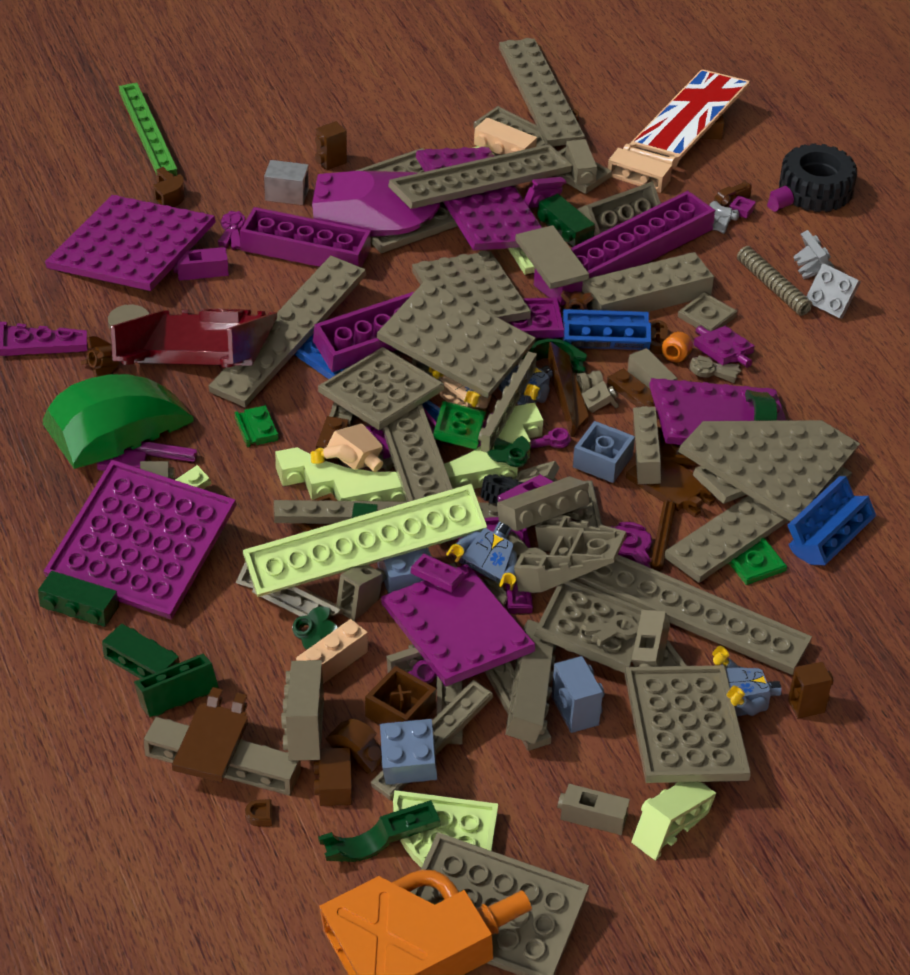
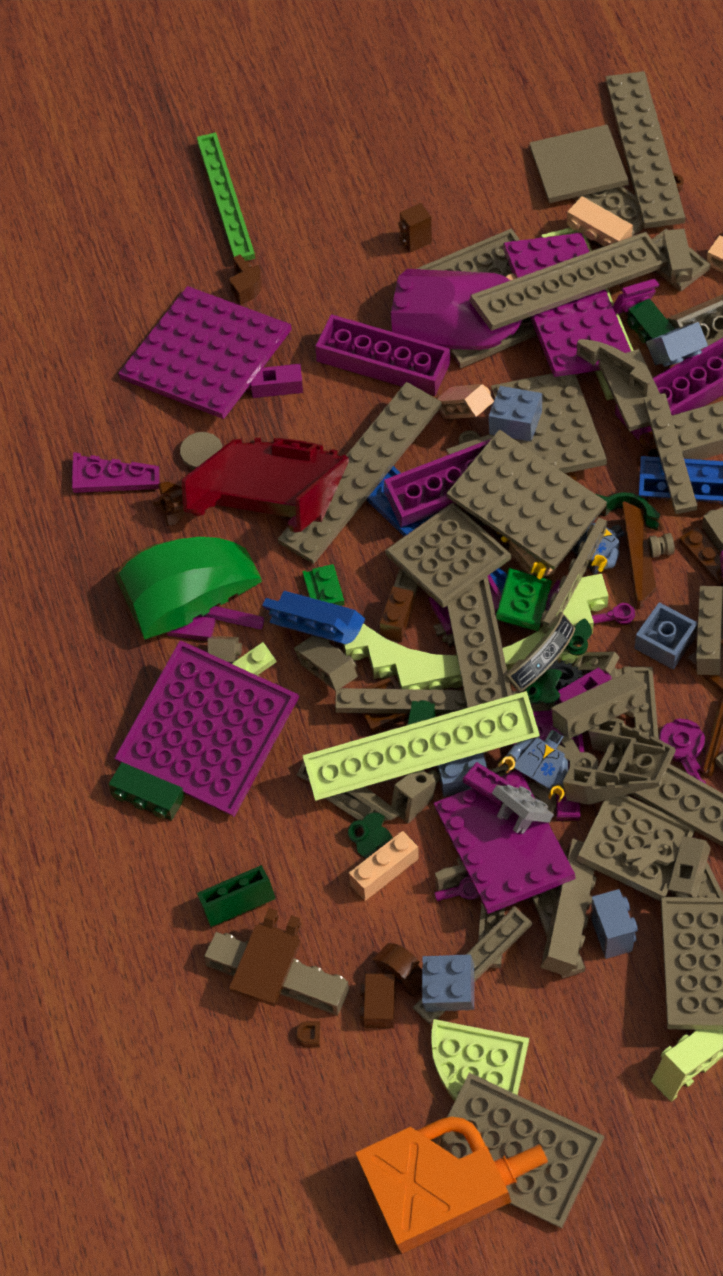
camera: 10 degrees right, 15 degrees up
(136, 652) = (202, 857): dark green brick -> none
(232, 224) = (309, 326): magenta piece -> none
(249, 441) = (315, 617): none -> blue brick
(262, 480) = (326, 662): none -> dark tan brick
(286, 182) = (367, 275): flat silver piece -> none
(303, 710) = (352, 935): dark tan brick -> none
(352, 446) = (415, 629): light nougat torso -> none
(387, 830) = (423, 1063): dark green piece -> none
(388, 269) = (465, 401): none -> light nougat brick
(400, 698) = (445, 923): reddish brown brick -> none
(441, 270) = (515, 413): none -> sand blue brick
(475, 100) = (578, 163): none -> dark tan tile
(482, 588) = (521, 802): none -> light grey plate
(484, 460) = (543, 654): none -> slope
(487, 489) = (544, 688): none -> dark green plate
(533, 229) = (594, 351): none -> dark tan slope
(544, 319) = (621, 466): magenta plate -> none
(589, 220) = (677, 345): none -> sand blue brick
(592, 302) = (670, 453): none -> dark tan plate
(594, 809) = (618, 1047): dark tan brick -> none
(600, 396) = (670, 563): dark tan bracket -> none

